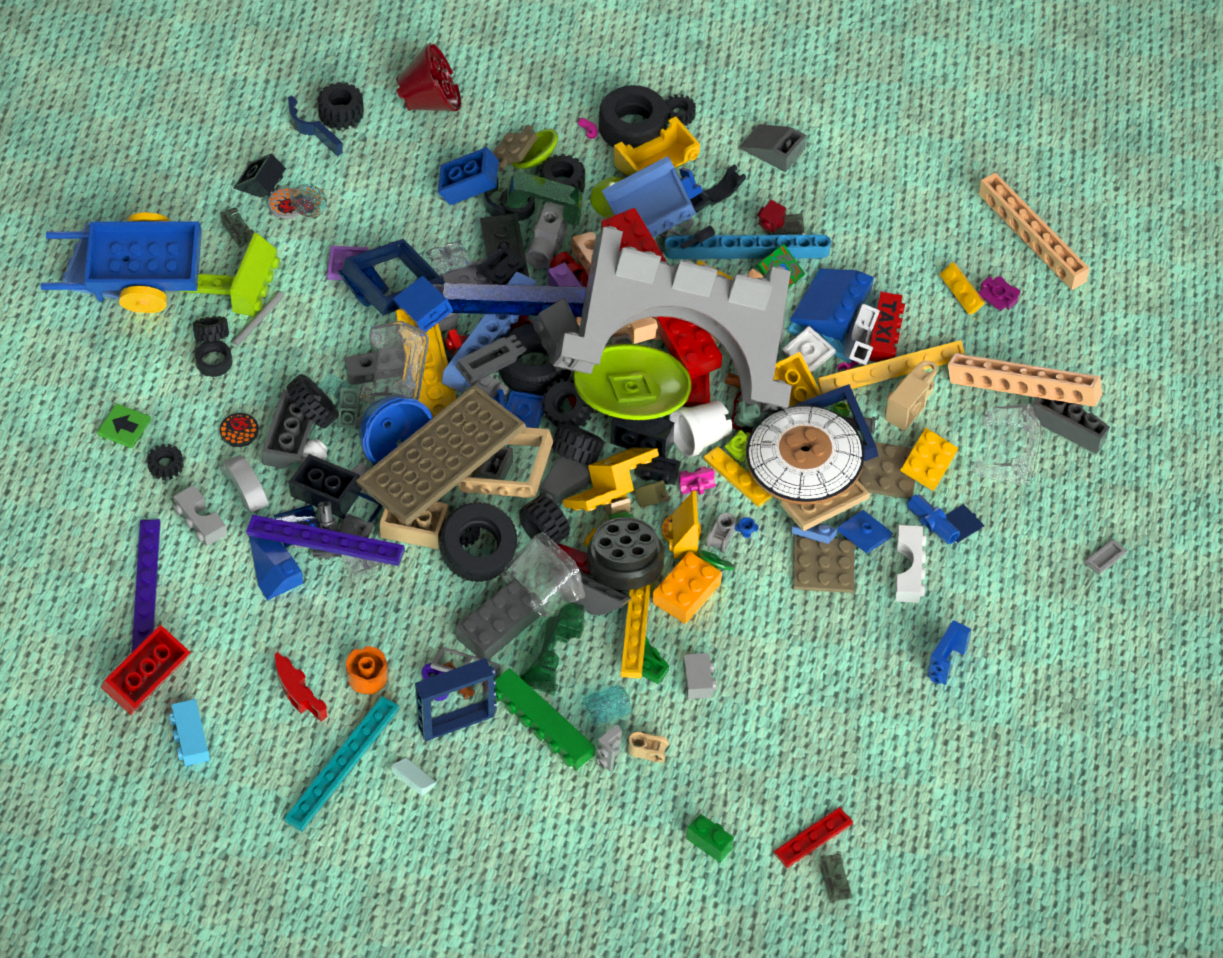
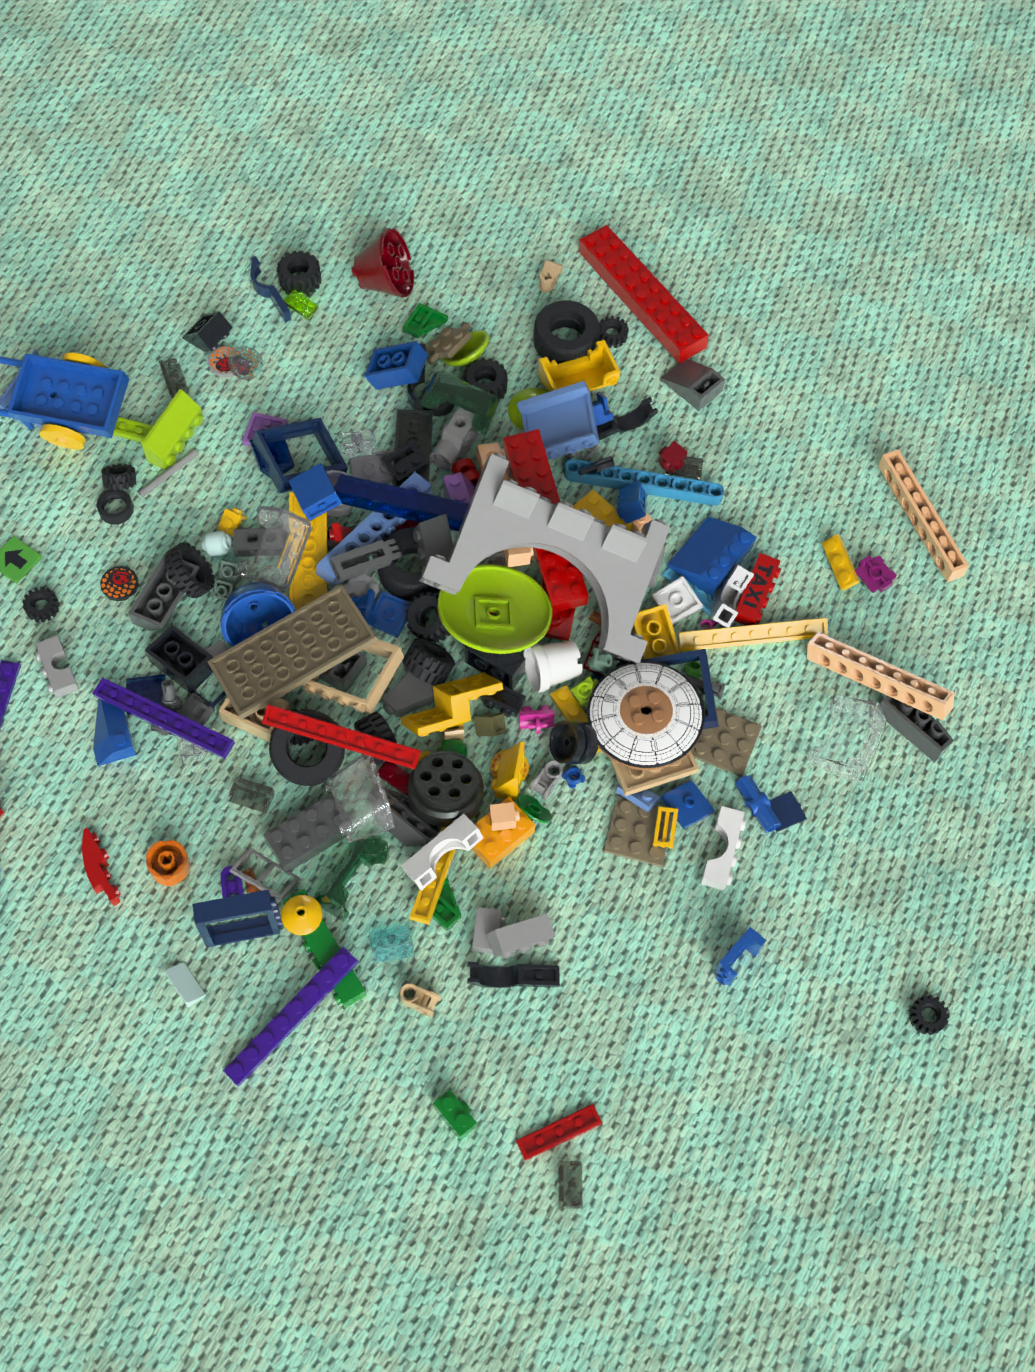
camera: 10 degrees right, 10 degrees up
(245, 482) = (106, 642): light grey arch -> none
(315, 448) = (181, 620): white head -> none
(330, 373) = (216, 543): none -> light aqua head
(337, 352) = (231, 520): none -> yellow bracket
(341, 764) = (118, 957): teal plate -> none
(350, 134) = (301, 304): none -> clear neon green hips
(431, 597) = (251, 794): none -> clear smoke hinge
(482, 130) = (423, 321): none -> green wing
(513, 520) = (341, 736): none -> red tile
(514, 698) = (301, 924): none -> yellow dish
(528, 781) = (290, 1016): none -> dark purple plate
(591, 128) = (526, 335): dark pink arm -> none
(600, 67) = (549, 275): none -> tan piece
(608, 748) = (378, 993): light grey bracket -> none
(652, 590) = (459, 835): none -> white arch
(689, 566) = (503, 816): none -> light nougat brick
(702, 68) = (643, 294): none -> red brick
(733, 671) = (521, 936): none -> light grey brick
(737, 710) = (518, 975): none -> black piece
(740, 492) = (573, 742): none -> black wheel
(741, 262) = (632, 502): none -> blue brick
(783, 258) = (670, 509): green tile -> none
(850, 568) = (663, 844): none -> yellow tile
(910, 396) = (764, 669): tan brick -> none
(929, 459) = (768, 738): yellow plate -> none
(1105, 557) = (920, 876): light grey tile -> none
(1140, 683) = (938, 1007): none -> black tyre

